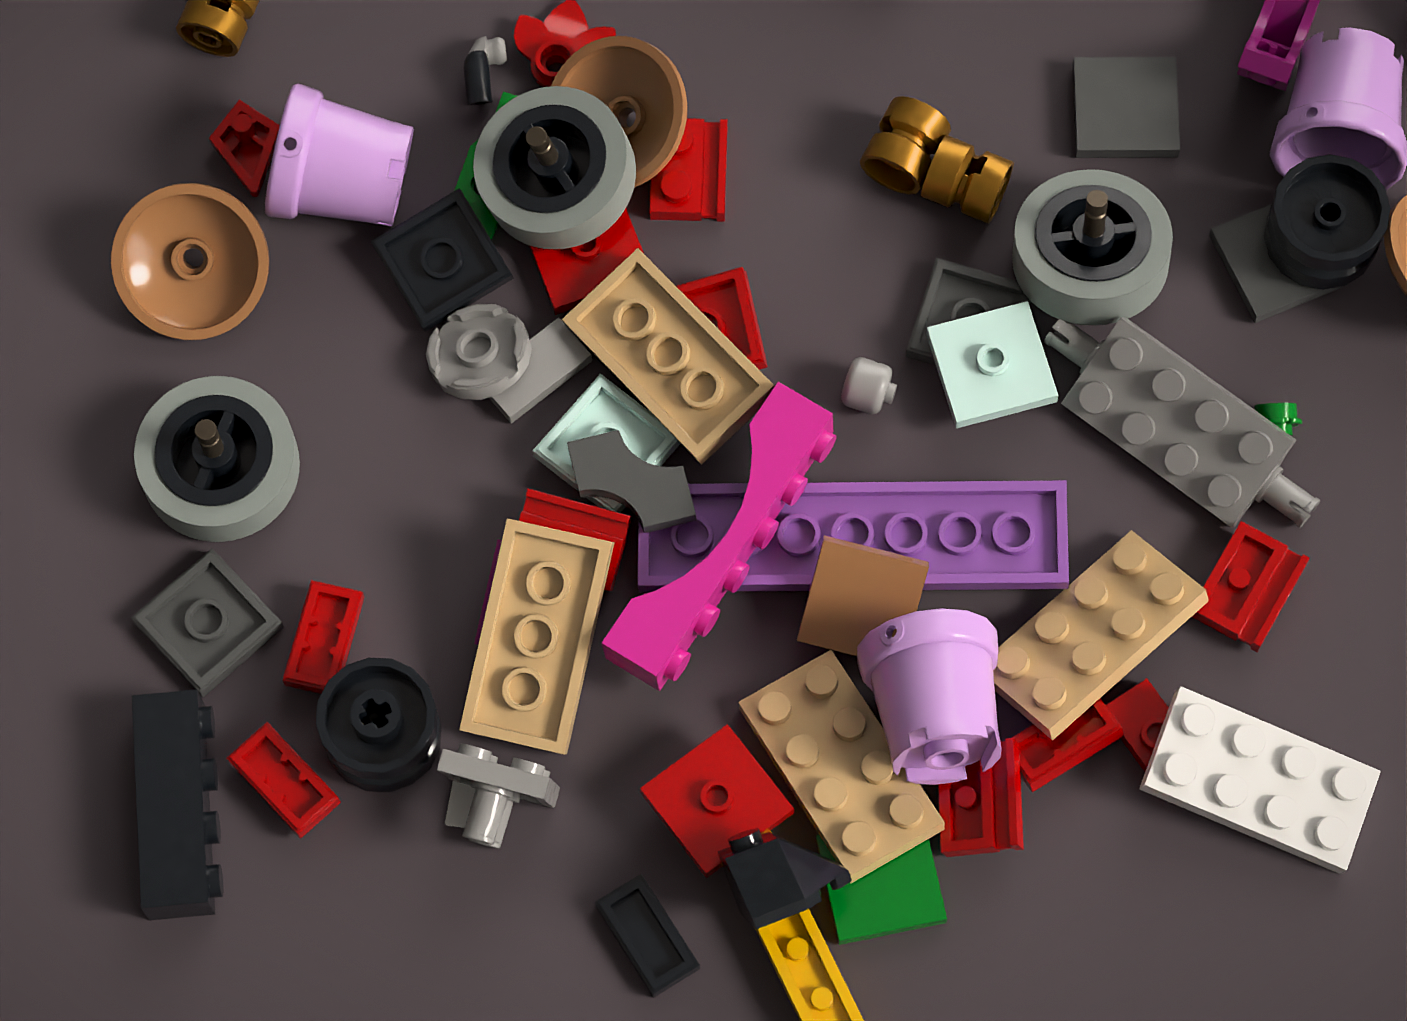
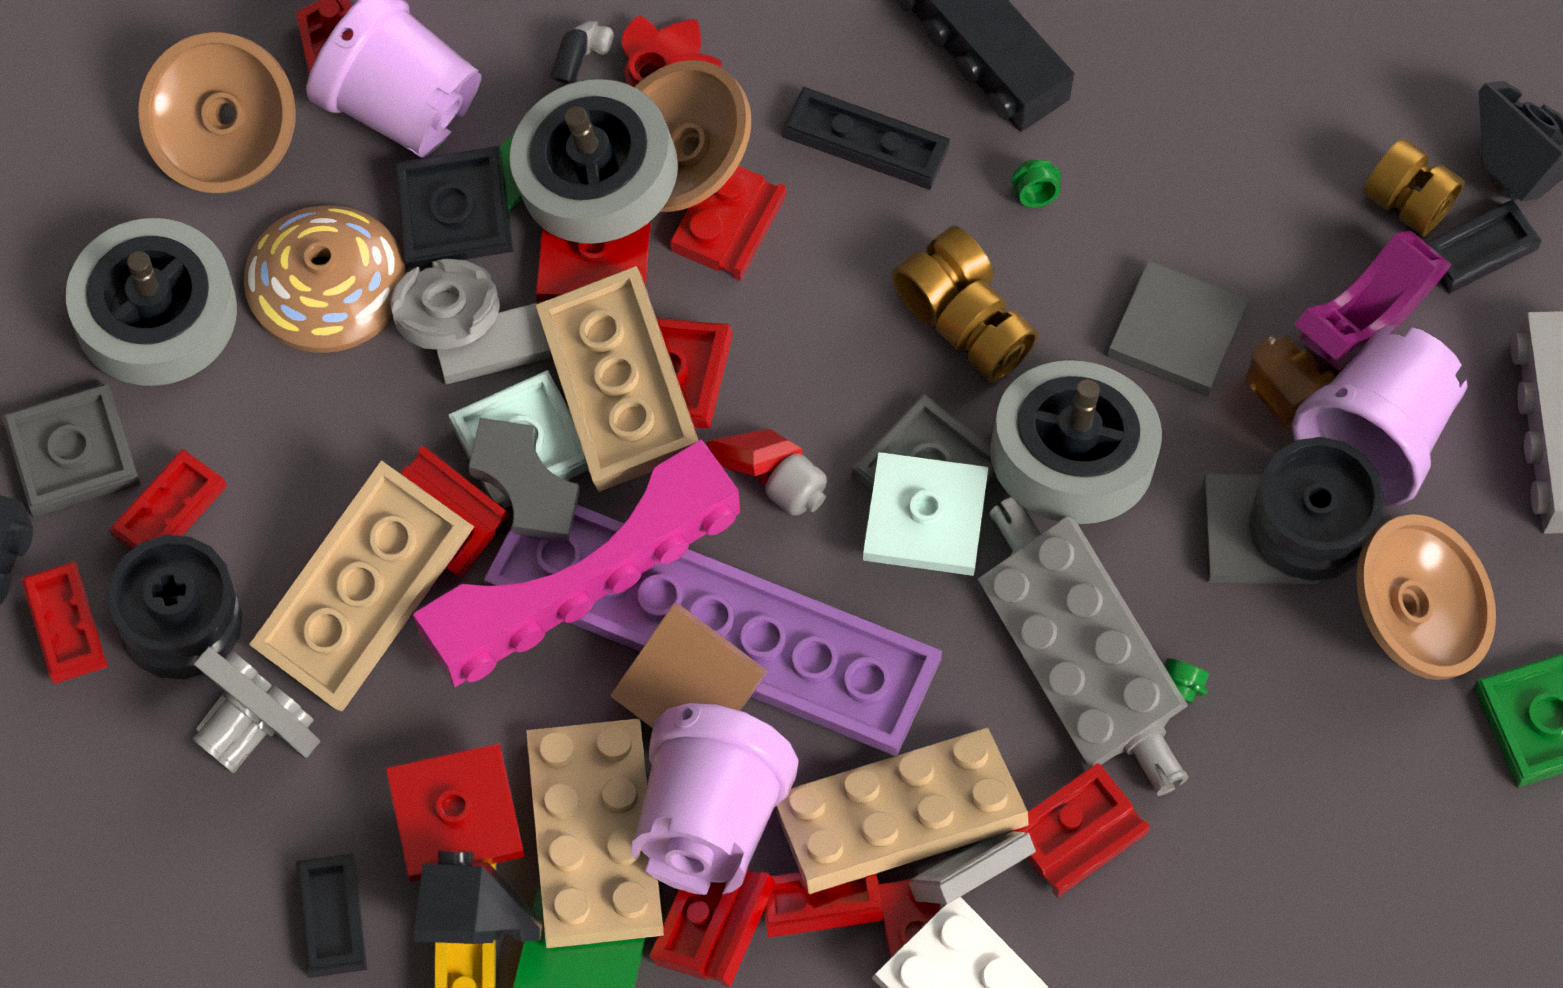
camera: 20 degrees right, 5 degrees down
(361, 400) = (329, 303): none -> medium nougat dish
(774, 46) = (866, 138): none -> black tile
(818, 371) = (753, 452): none -> red piece
(944, 26) = (1036, 183): none -> green plate
(1179, 659) = (971, 867): none -> light grey tile
(1242, 115) = (1284, 376): none -> clear orange brick

